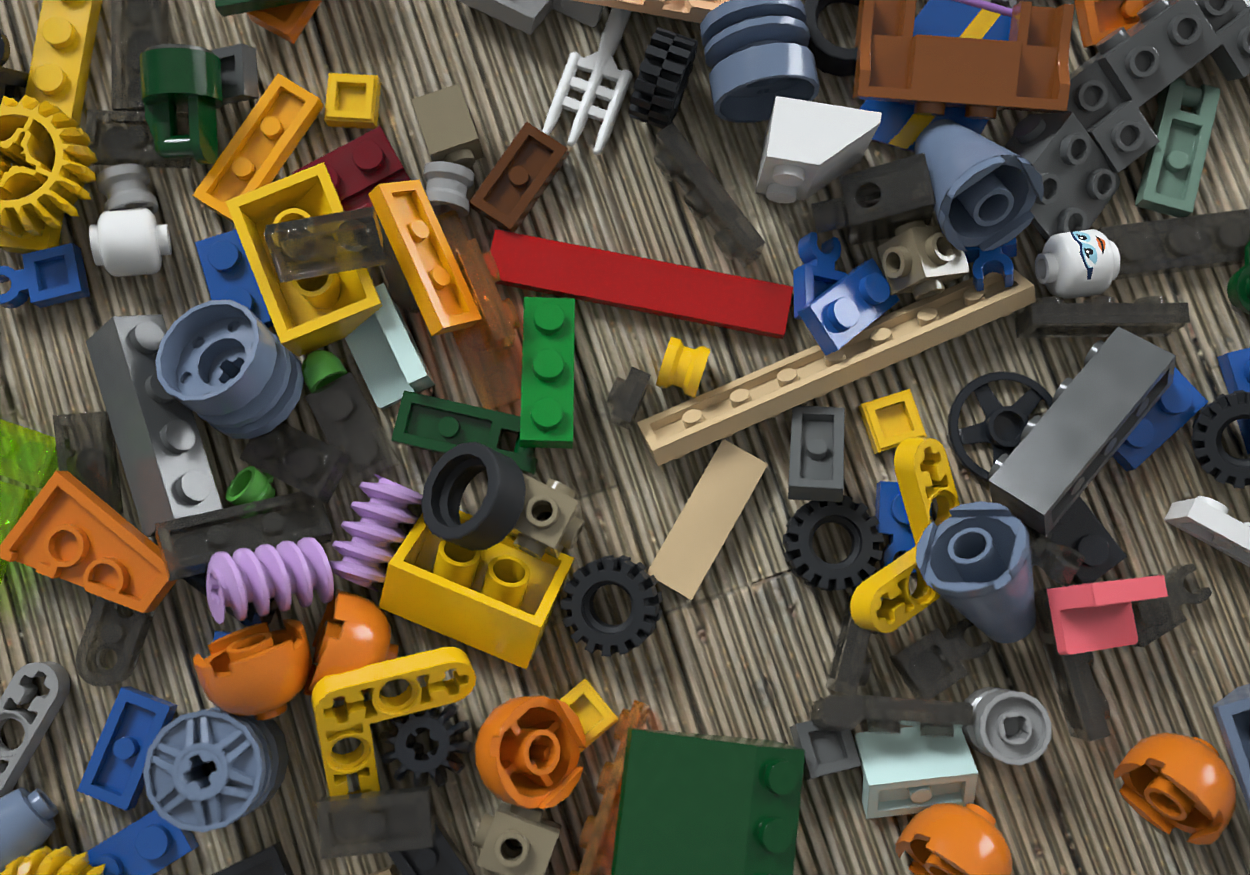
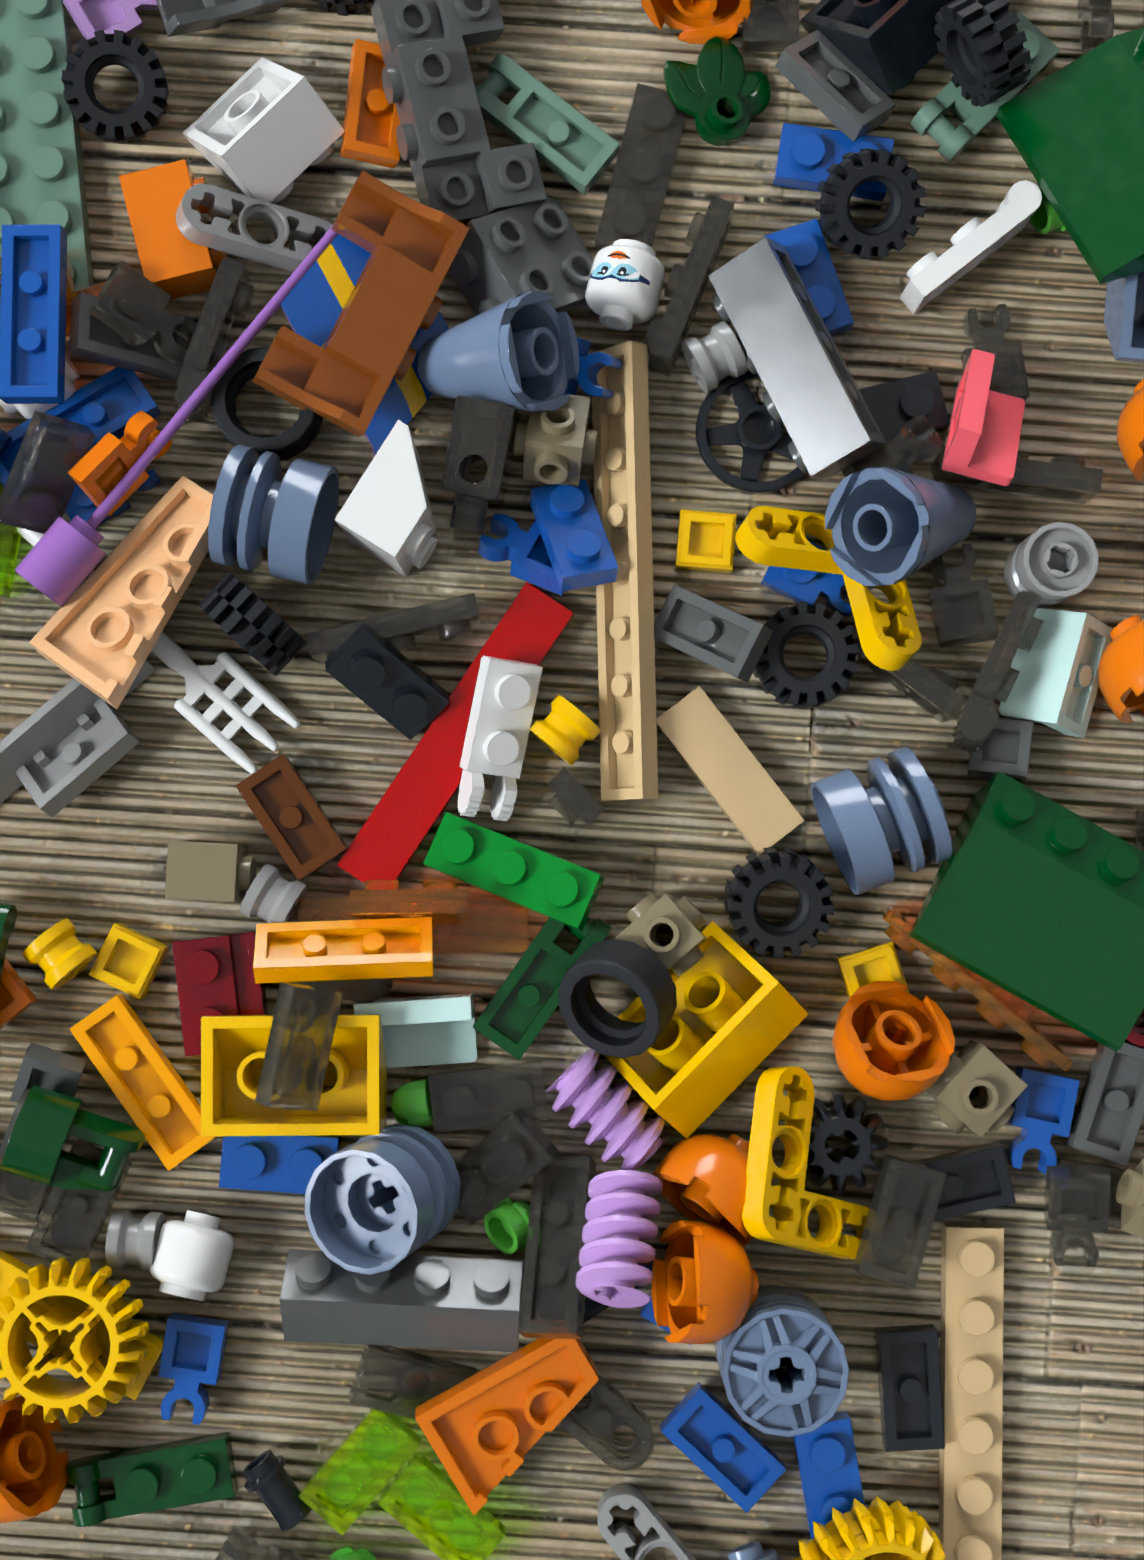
camera: 65 degrees left, 5 degrees up
(335, 42) = (59, 954): none -> yellow wheel
(658, 312) = (497, 734): none -> white hinge
(661, 204) = (387, 681): none -> black plate
(720, 664) = (892, 816): none -> sand blue wheel
(1051, 363) = (714, 357): none -> light grey wheel

